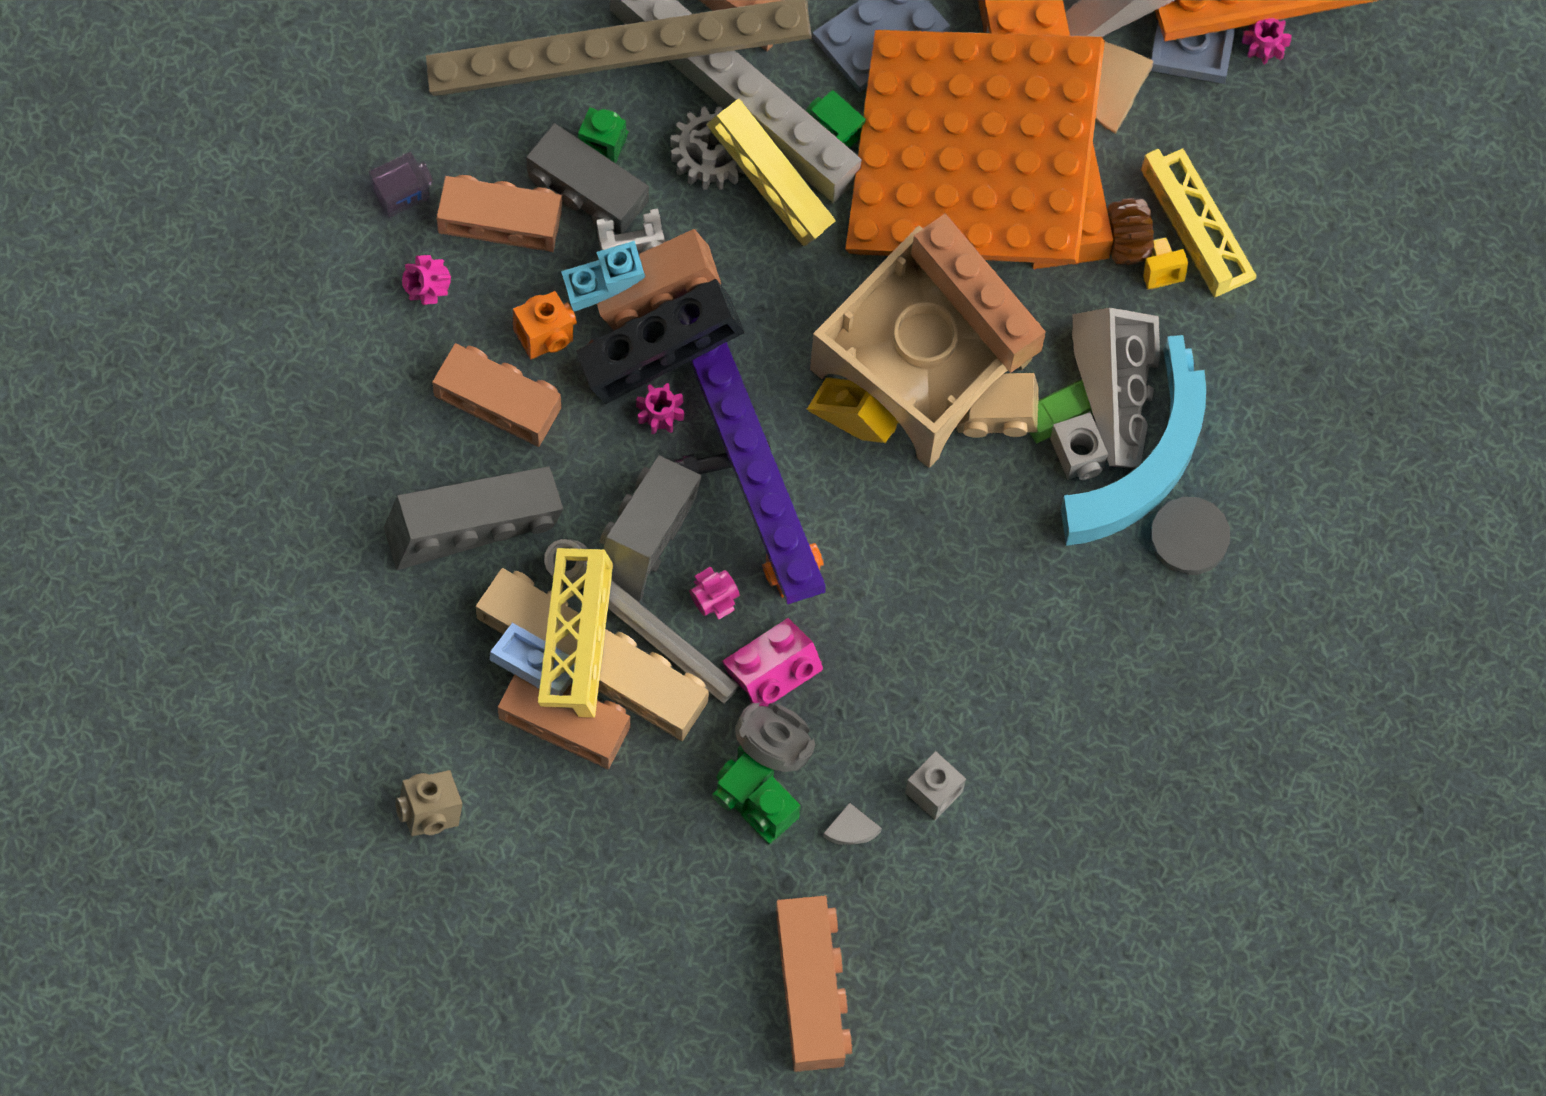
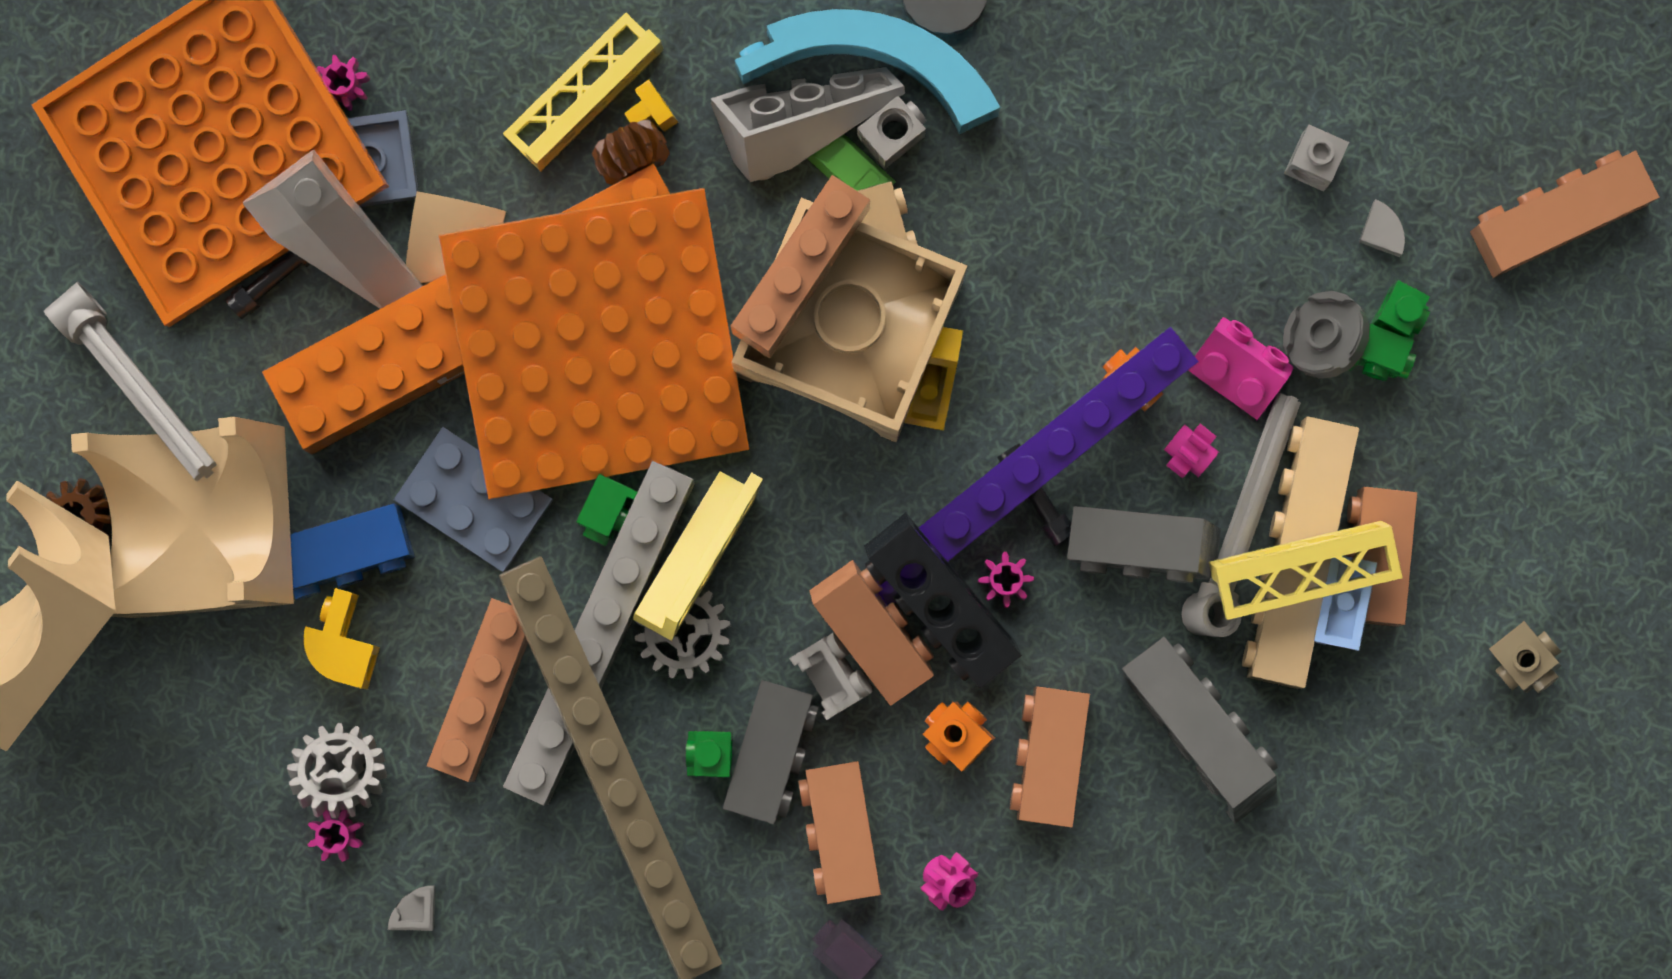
camera: 105 degrees left, 15 degrees up
(602, 279) = (892, 686): medium azure slope -> none

